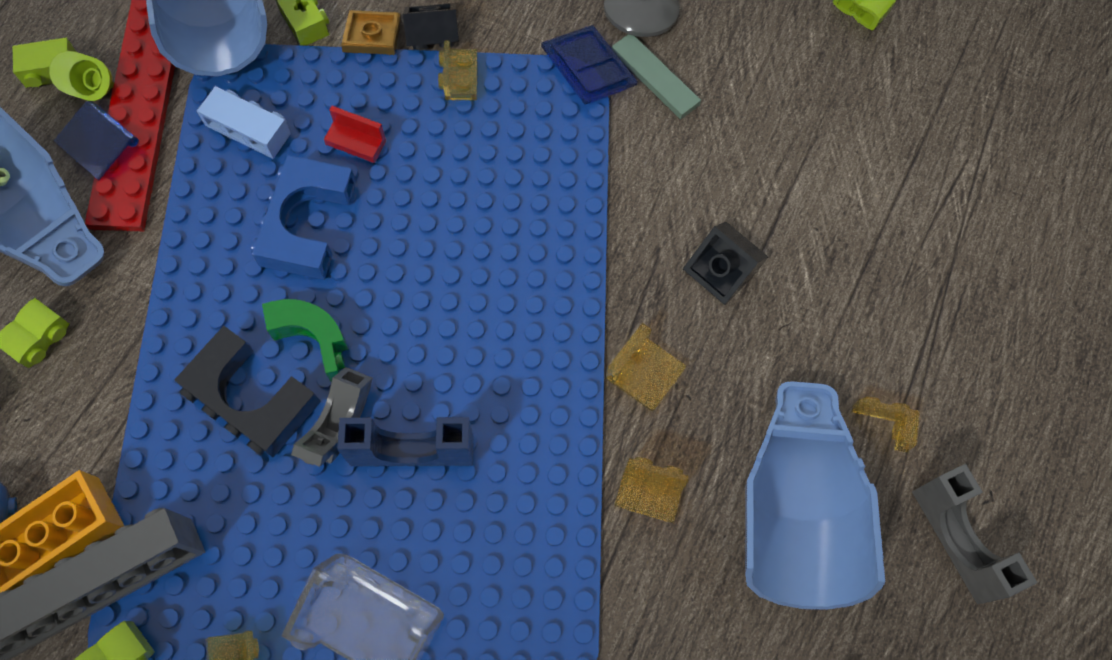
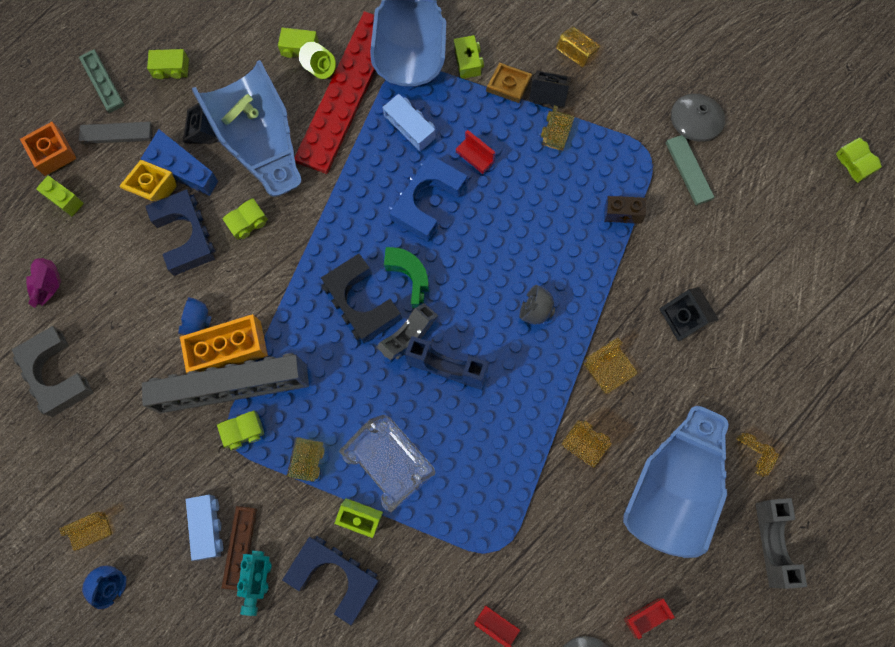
camera: 30 degrees right, 5 degrees up
(95, 139) = (314, 104): clear blue piece -> none
(514, 317) = (538, 306): none -> dark grey cylinder
(589, 64) = (646, 148): clear blue piece -> none
(589, 149) = (625, 209): none -> dark brown brick

